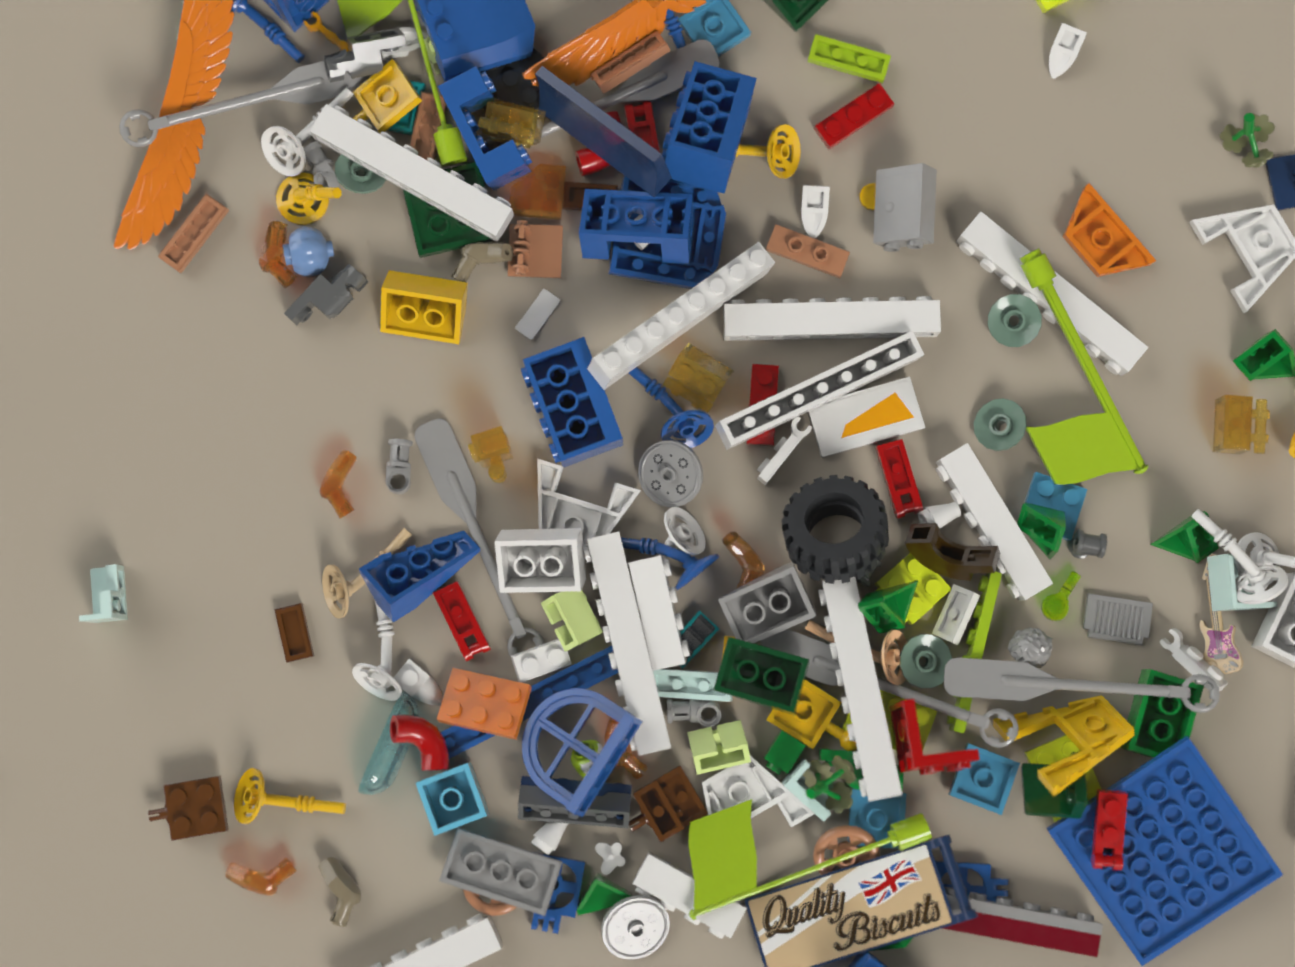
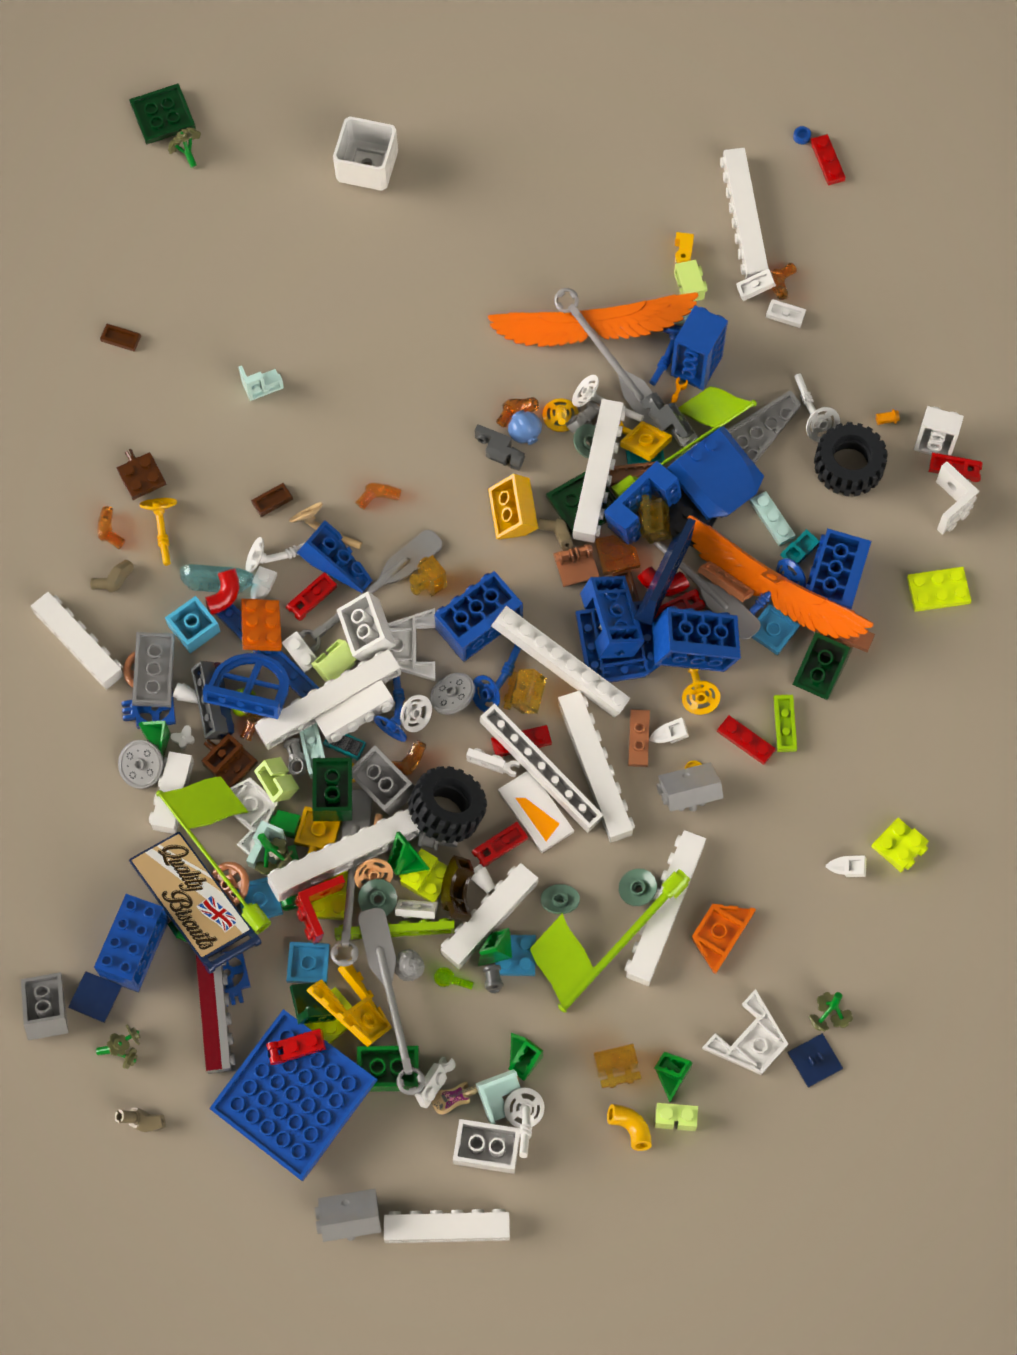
camera: 75 degrees right, 15 degrees down
(193, 233) = (513, 357): nougat plate -> none
(399, 465) = (402, 526): light grey connector -> none
(537, 314) = (534, 581): white sticker -> none
(1117, 619) = (449, 1024): light grey window -> none
(1254, 574) = (503, 1099): white dish -> none

